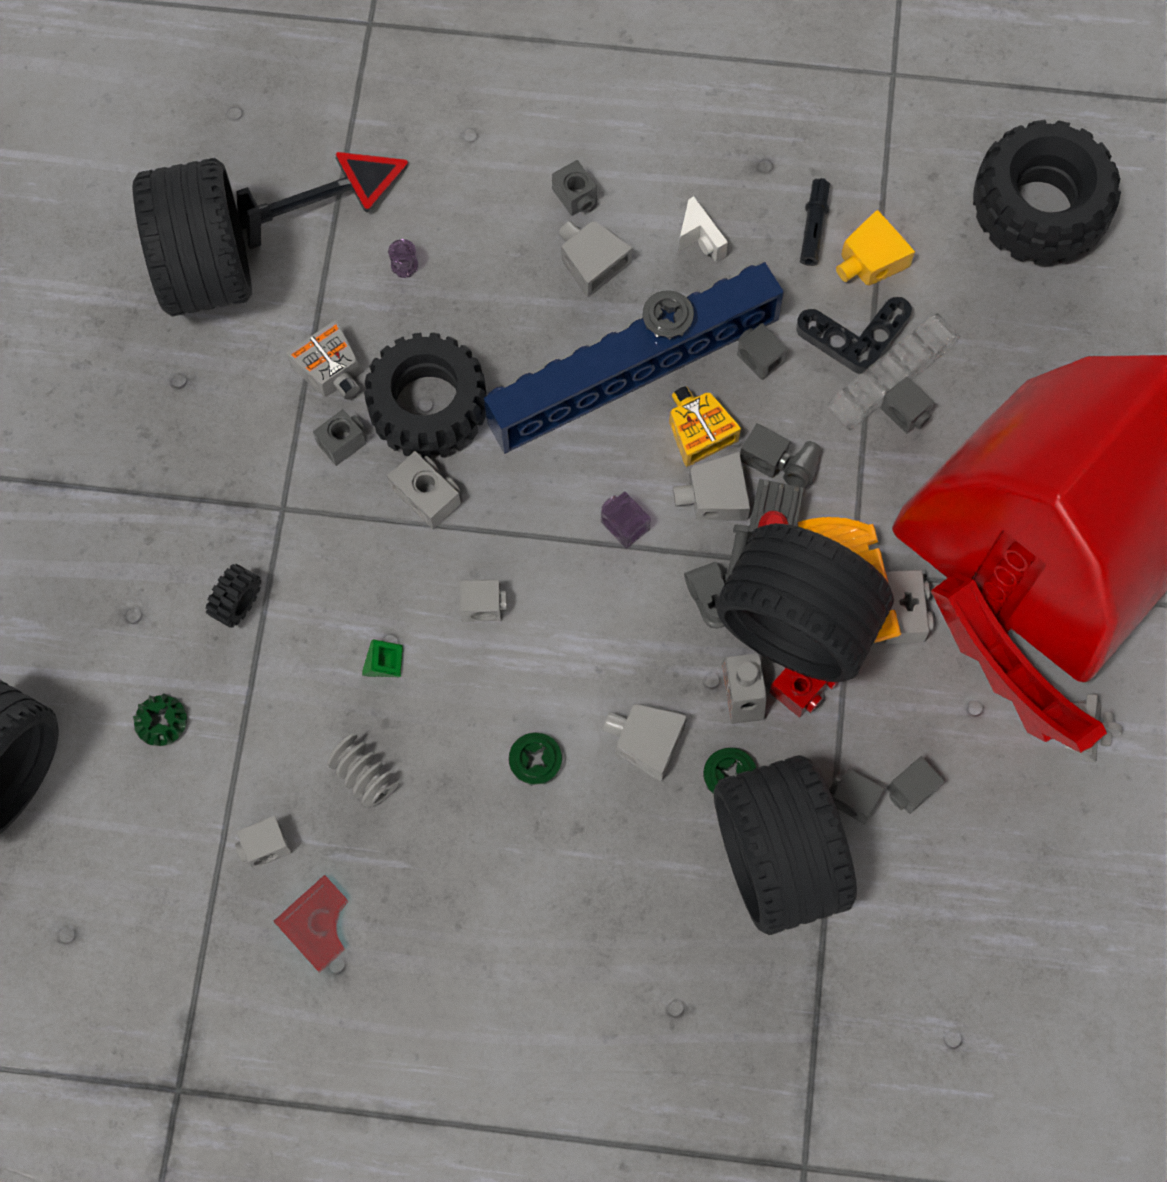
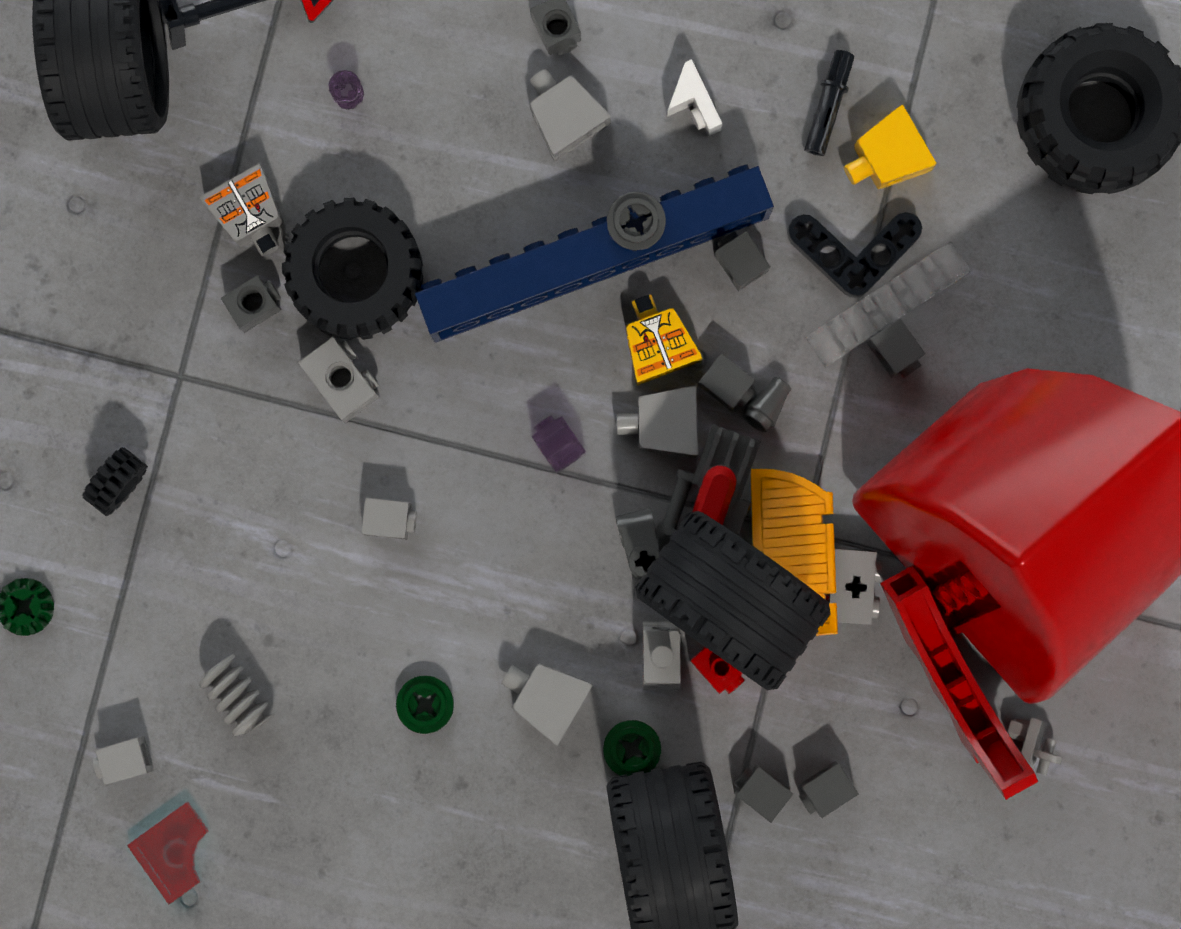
camera: 10 degrees right, 15 degrees up
(383, 659) = (273, 570): green slope -> none

